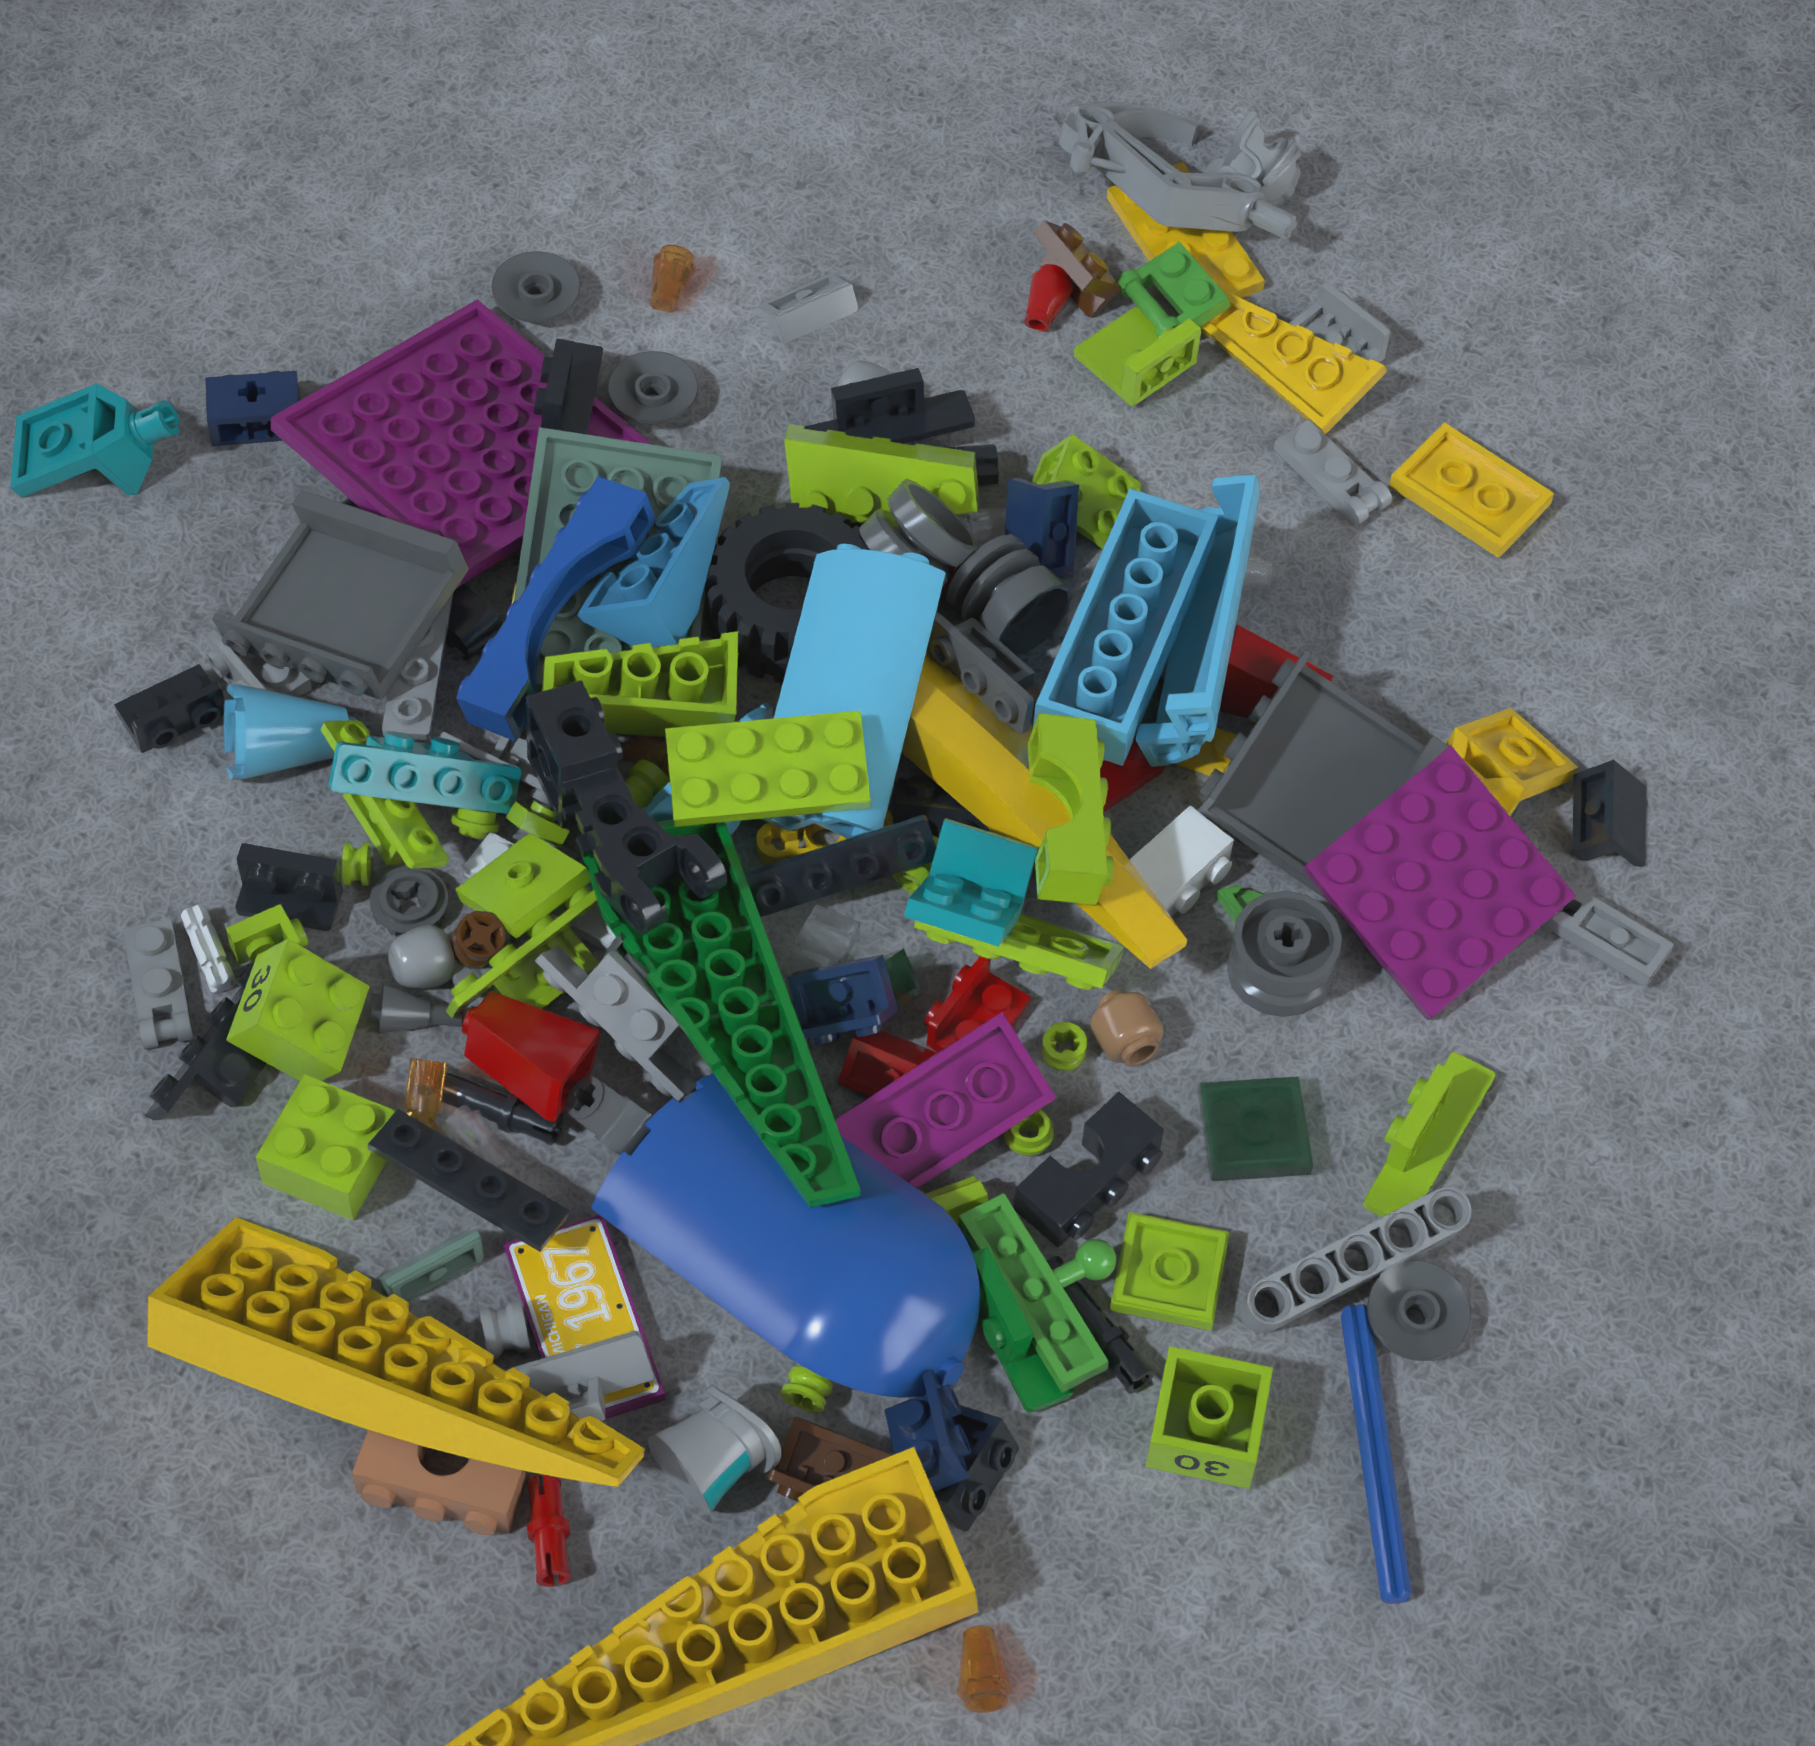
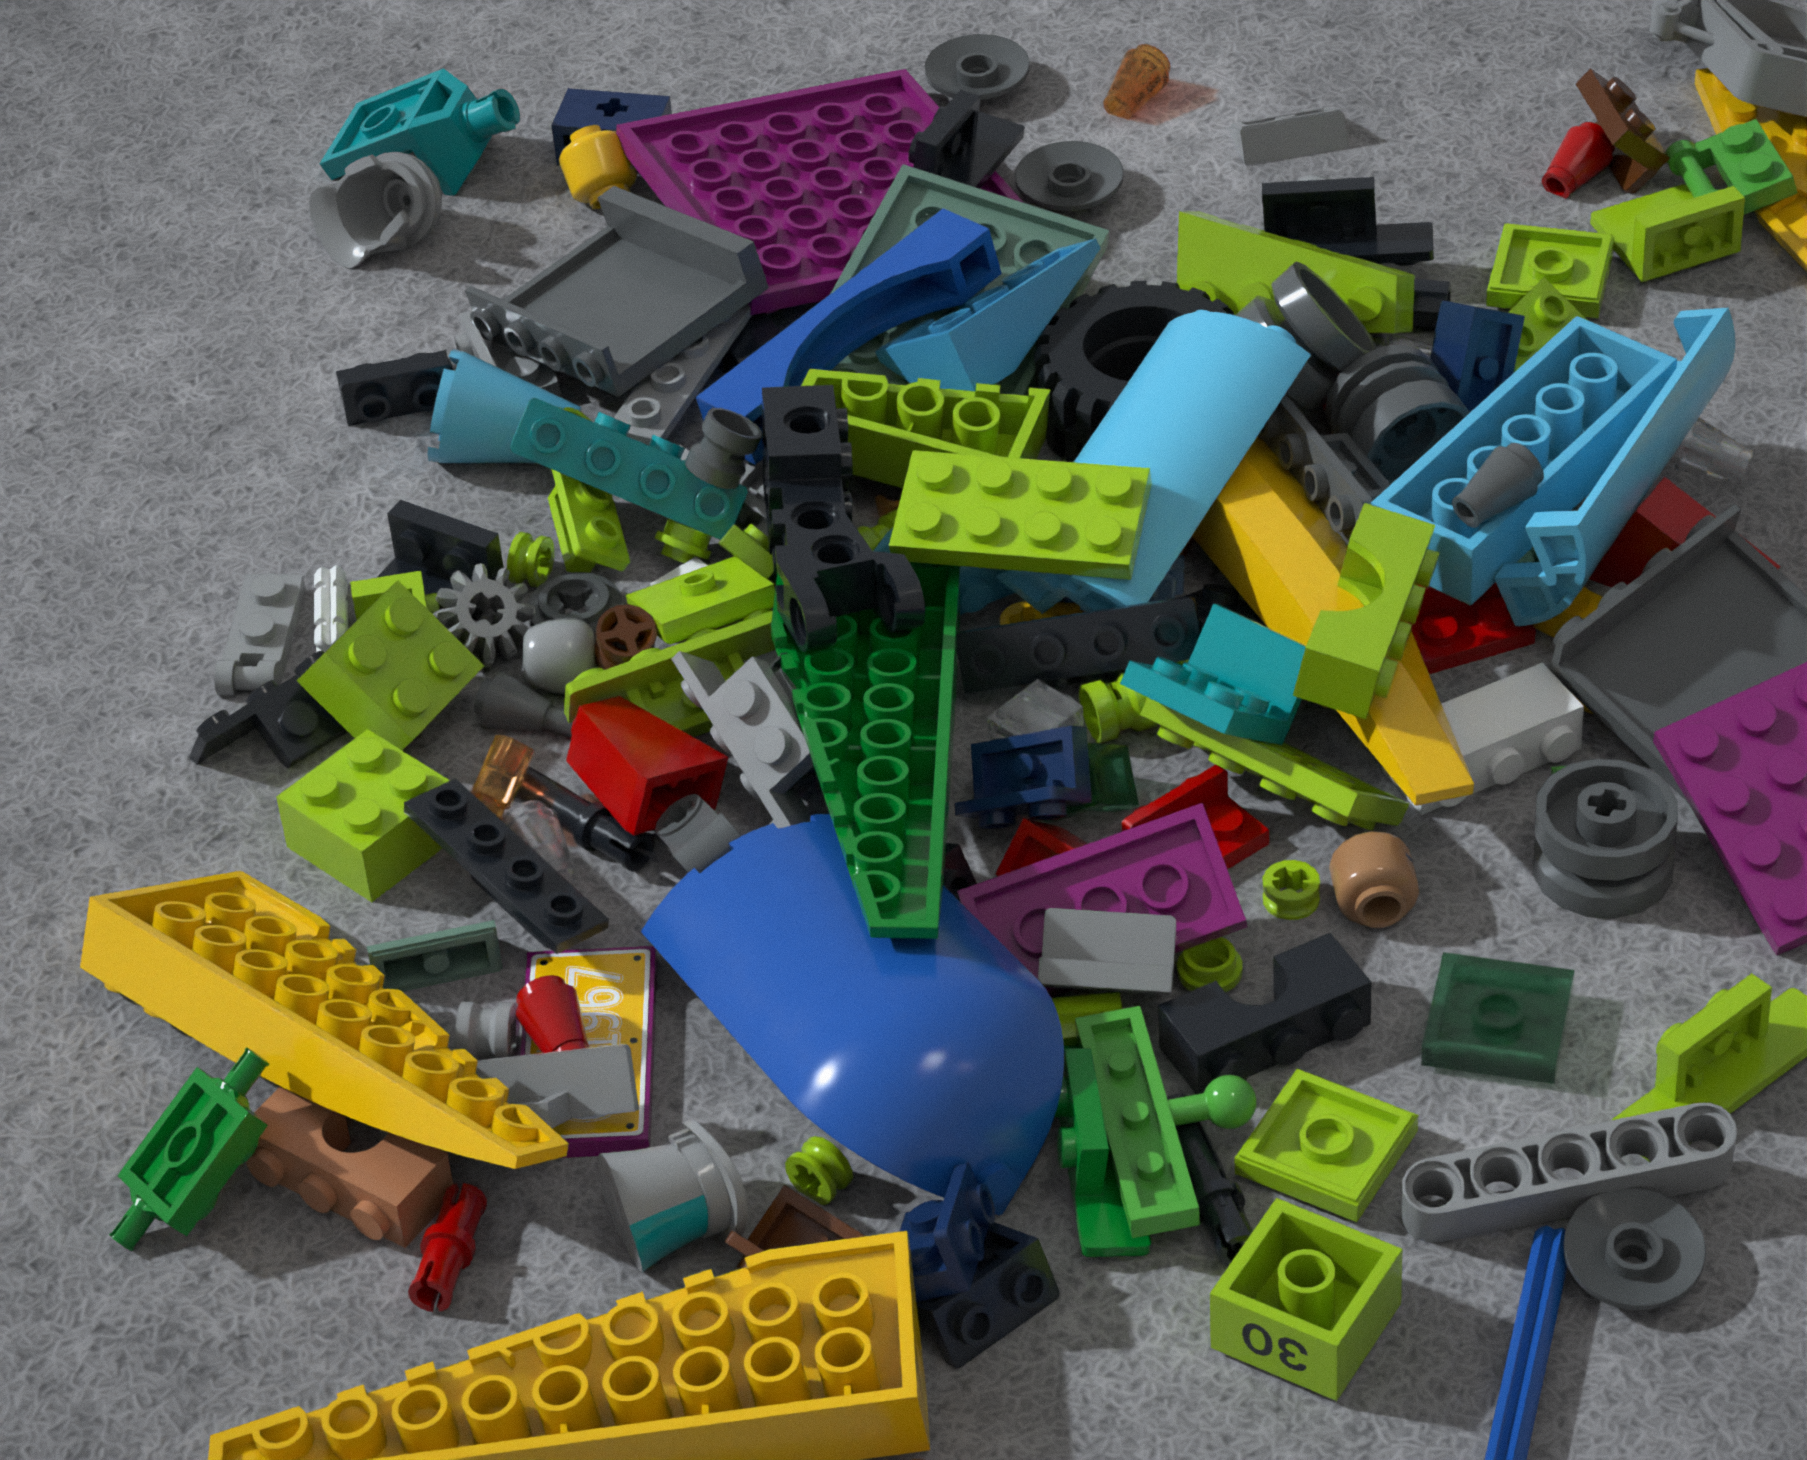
camera: 25 degrees right, 15 degrees down
(86, 532) = (376, 208): none -> light grey helmet
(258, 452) = (595, 164): none -> yellow head
(322, 1505) = (192, 1151): none -> green plate
(364, 927) = (485, 595): none -> light grey gear
(498, 749) = (723, 448): none -> dark grey wheel
(560, 1313) = (551, 1014): none -> red cone
(878, 906) = (1112, 709): none -> lime wheel
(963, 1152) = (1108, 951): none -> light grey panel
(1059, 405) = (1569, 259): none -> lime plate
(1134, 672) = (1500, 483): none -> dark grey cone

